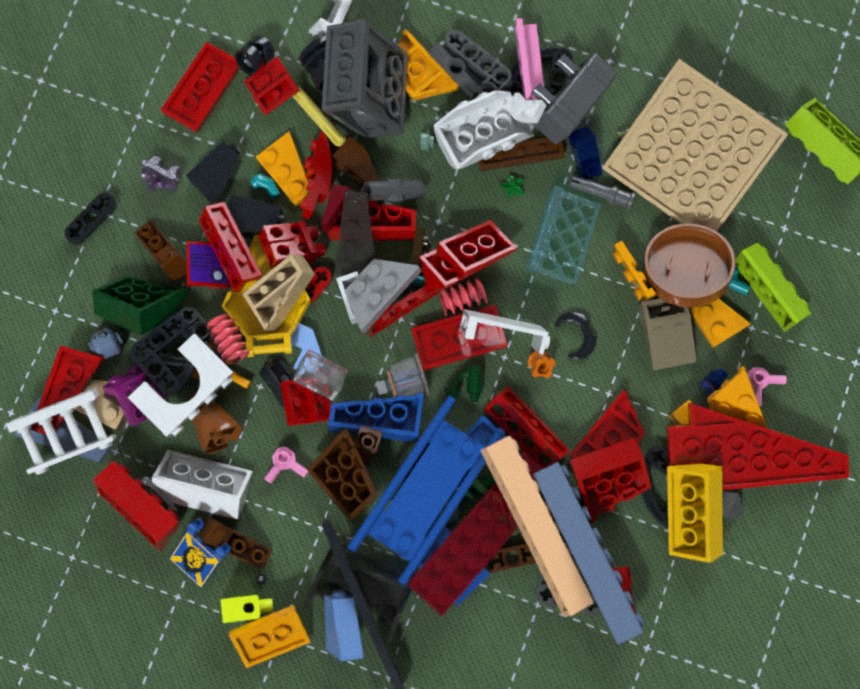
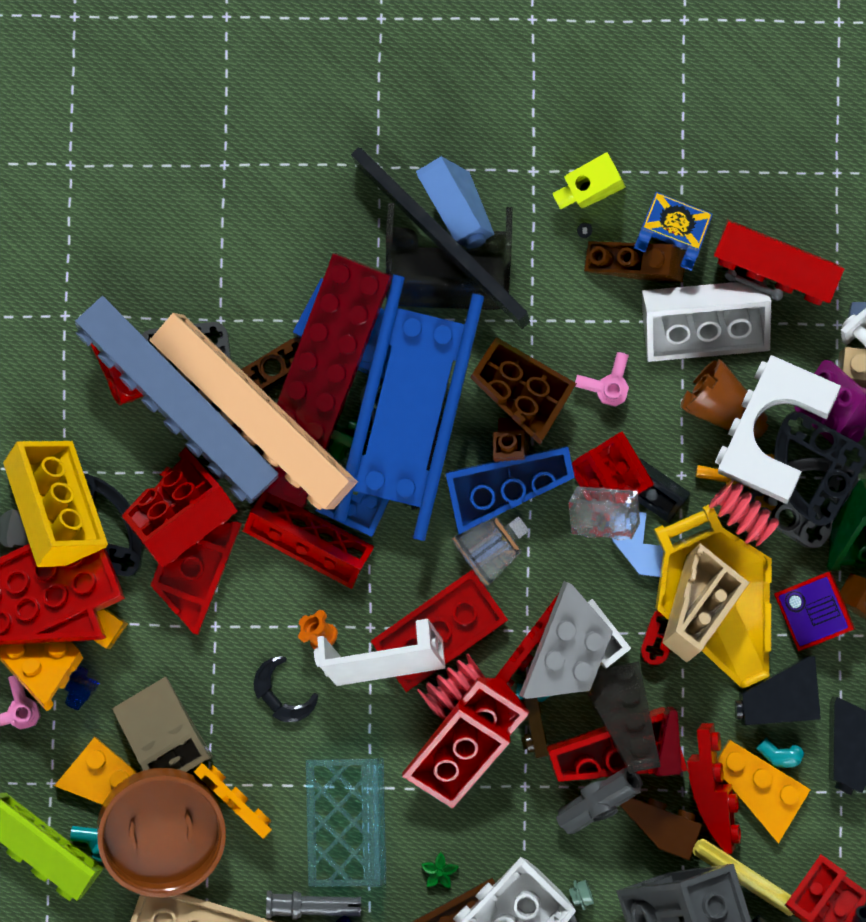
camera: 160 degrees right, 5 degrees up
(229, 246) = (793, 643): red fence -> none
(269, 636) = (544, 161): light orange plate -> none
(290, 238) = (712, 676): red hips -> none
(474, 378) = (397, 575): dark green plant -> none

